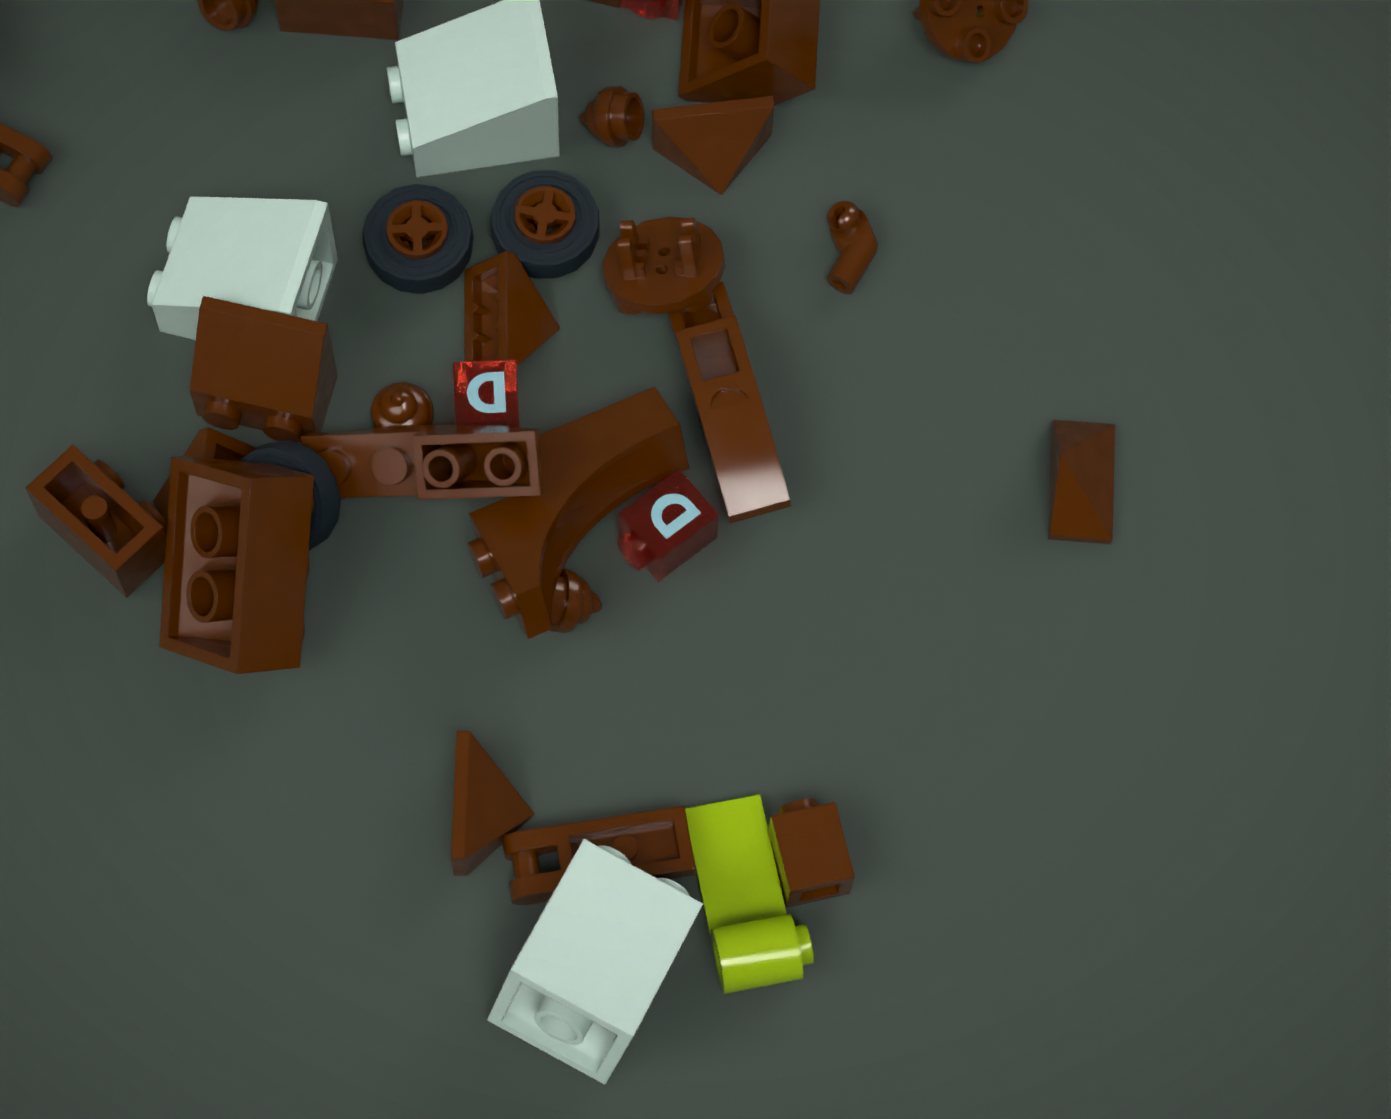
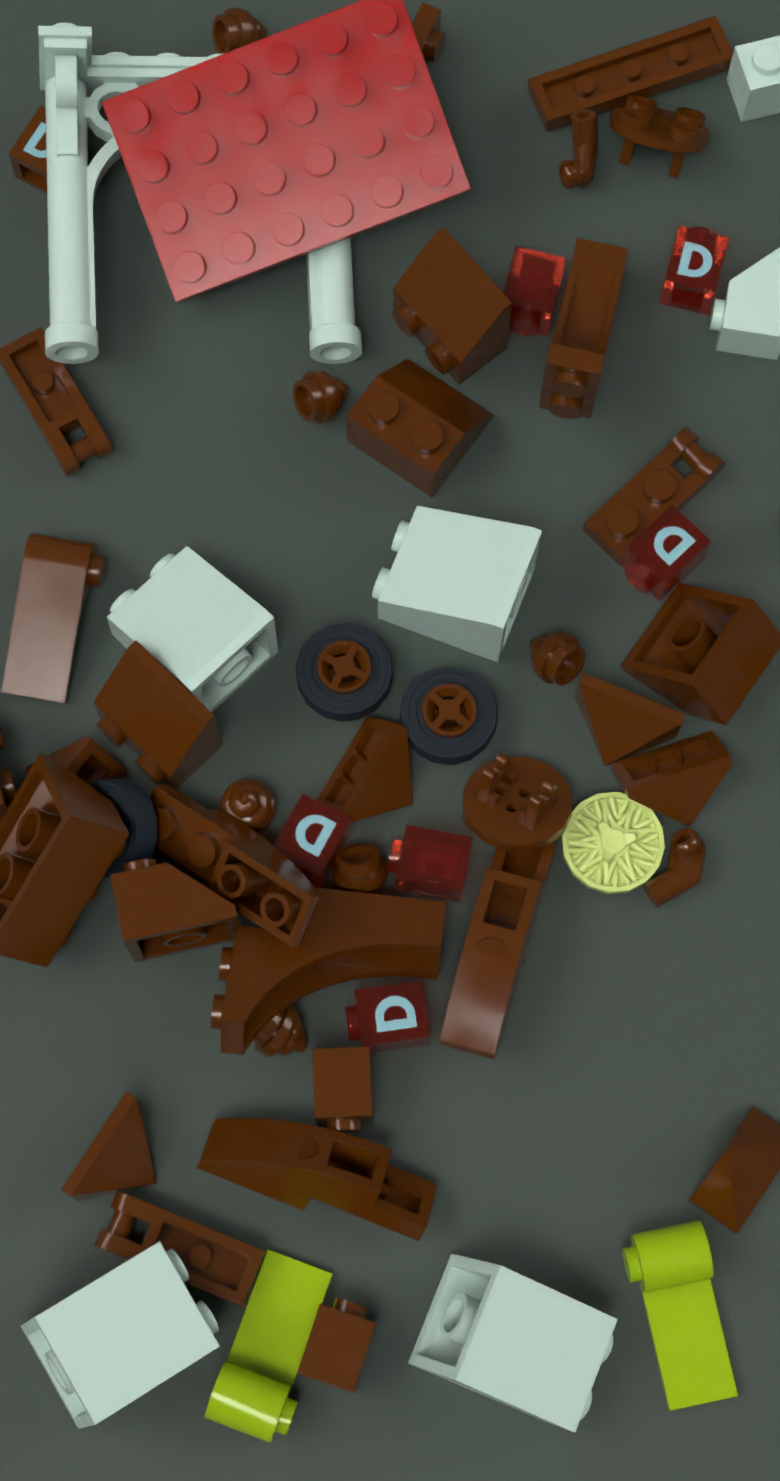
camera: 35 degrees right, 5 degrees up
(88, 342) = (48, 615): none -> door
(394, 539) = (168, 911): none -> reddish brown slope
(549, 405) = (359, 869): none -> reddish brown plate
(615, 362) = (430, 863): none -> clear red brick
(662, 615) = (342, 1088): none -> reddish brown brick
(669, 700) = (318, 1163): none -> reddish brown slope
(775, 256) = (613, 843): none -> yellowish green wheel
(797, 164) = (676, 776): none -> reddish brown slope
(970, 747) = (514, 1341): none -> light aqua slope
(1083, 616) = (682, 1313): none -> lime door

